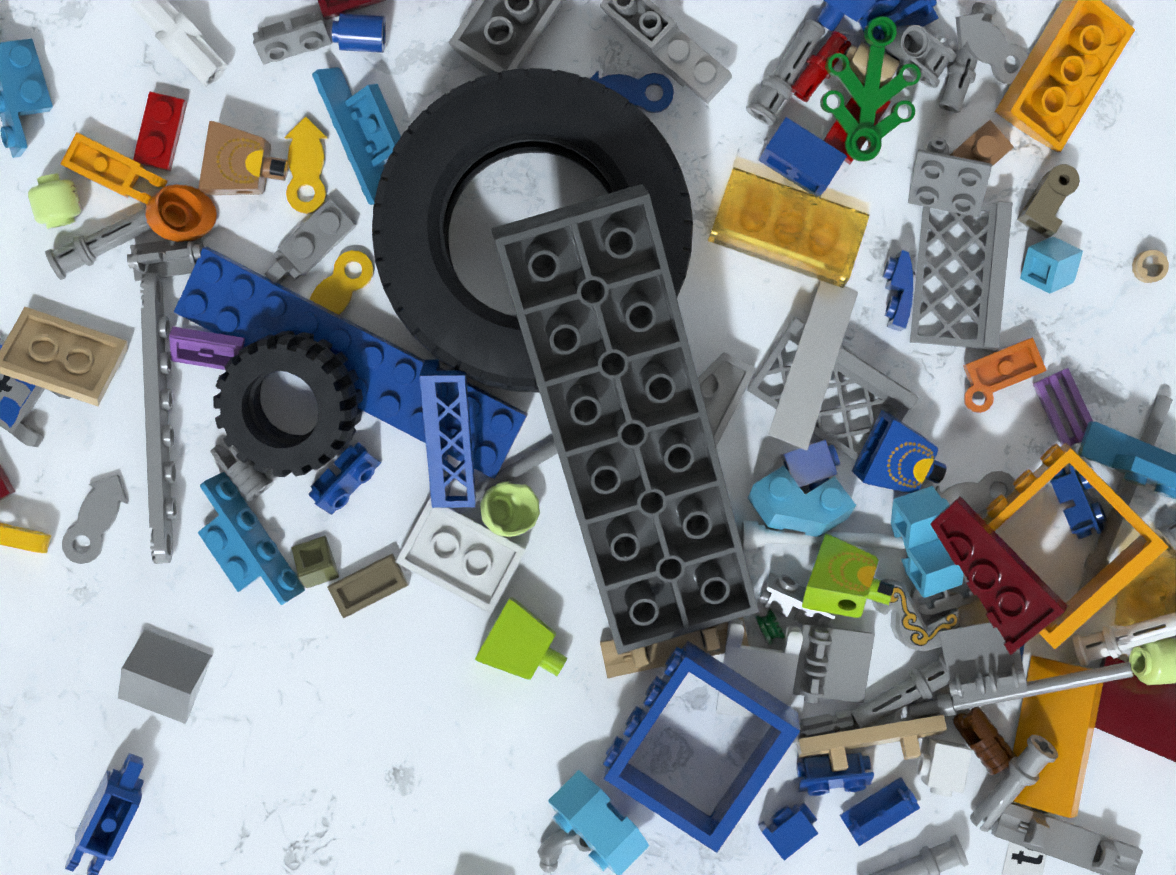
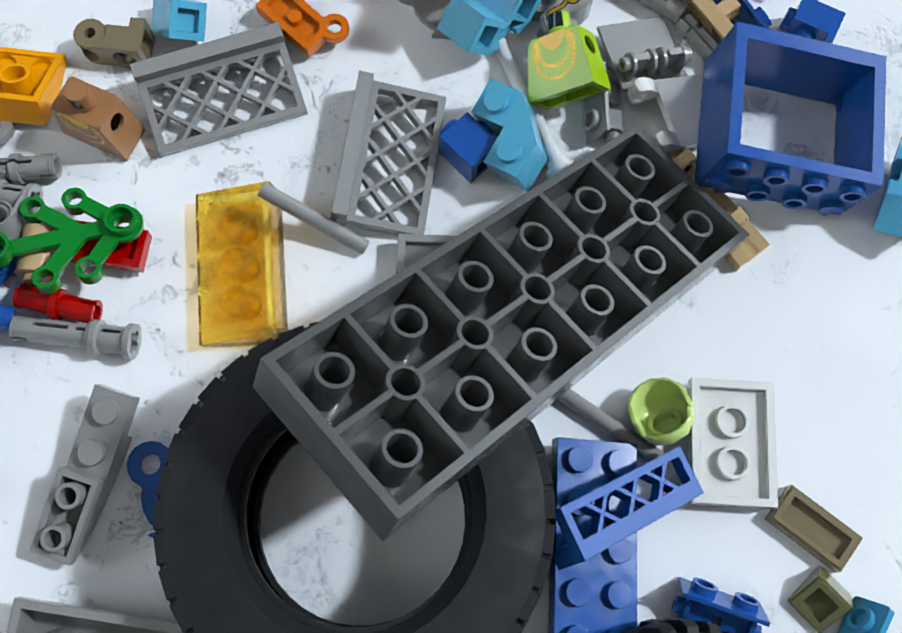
camera: 120 degrees left, 15 degrees down
(520, 643) = (786, 342): lime torso -> none
(768, 627) = (642, 118): dark green bush -> none
(801, 302) = (313, 218): none -> light grey bar
(802, 157) = (162, 280): blue hinge -> none
(813, 365) = (380, 162): white sticker -> none
(897, 457) = (425, 71): blue torso -> none
(900, 280) = (247, 139): blue slope -> none
(948, 180) = (128, 124): light grey hinge -> none

